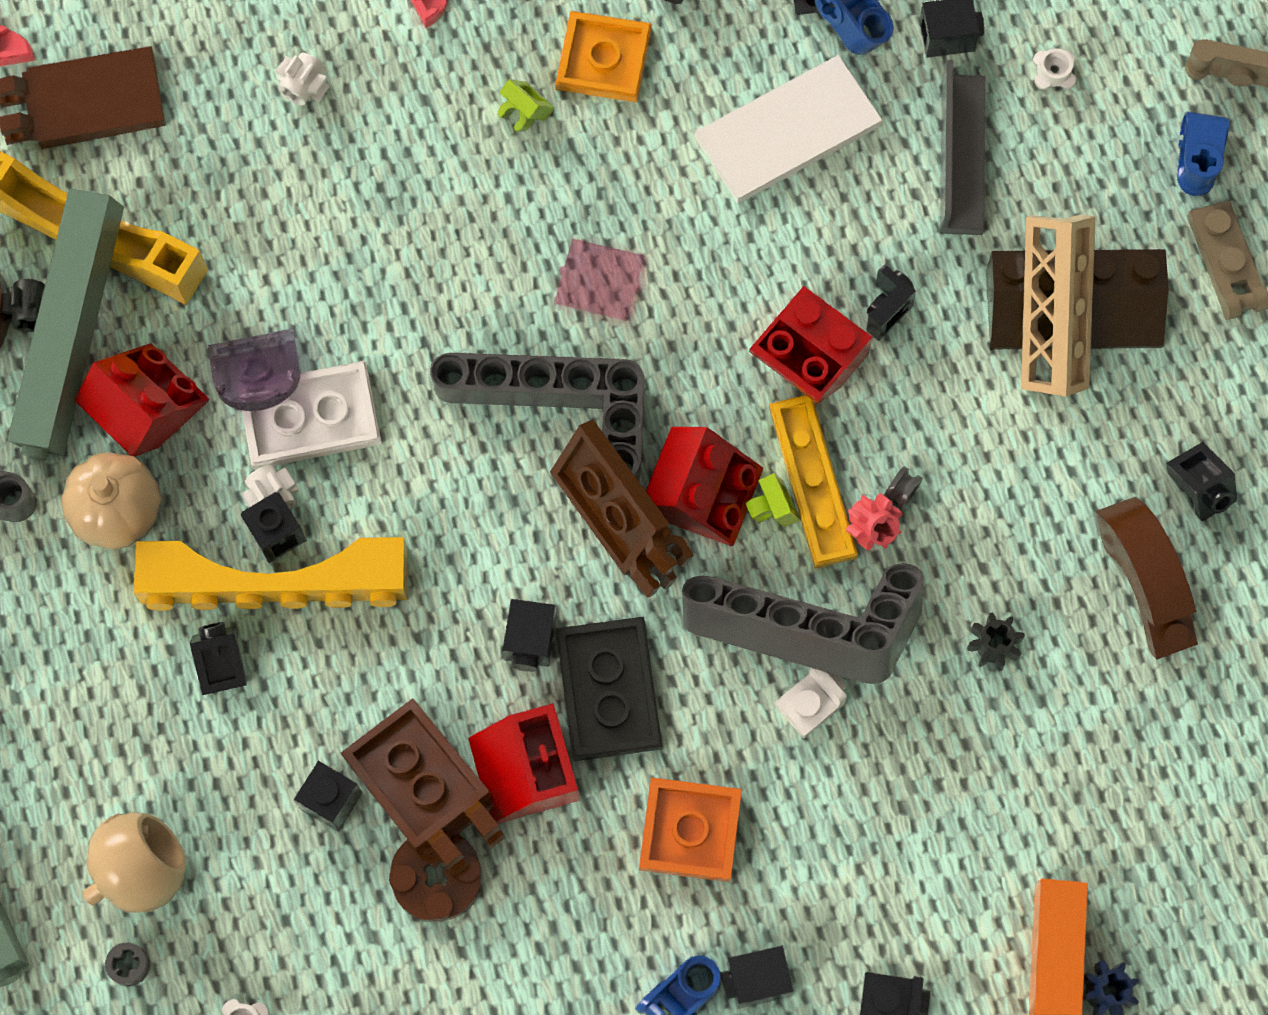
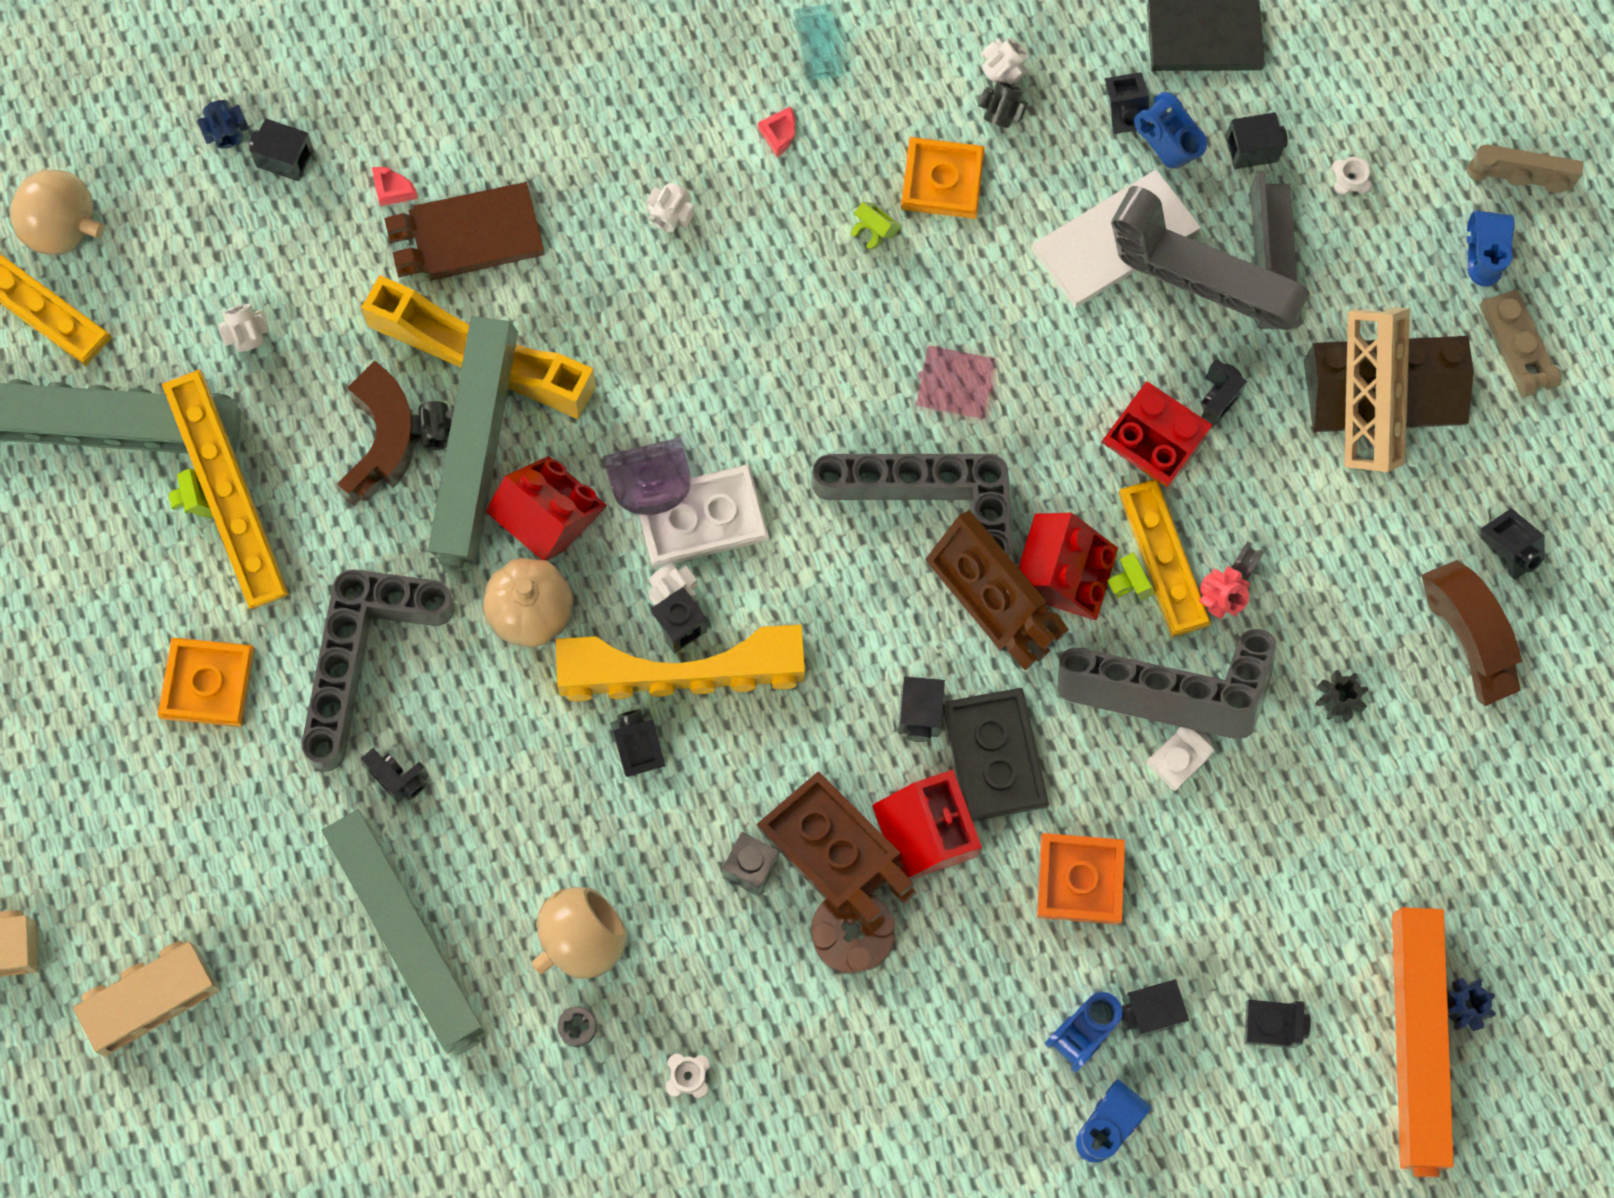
camera: 10 degrees left, 0 degrees up
(868, 163) = (1200, 269): none -> dark grey beam

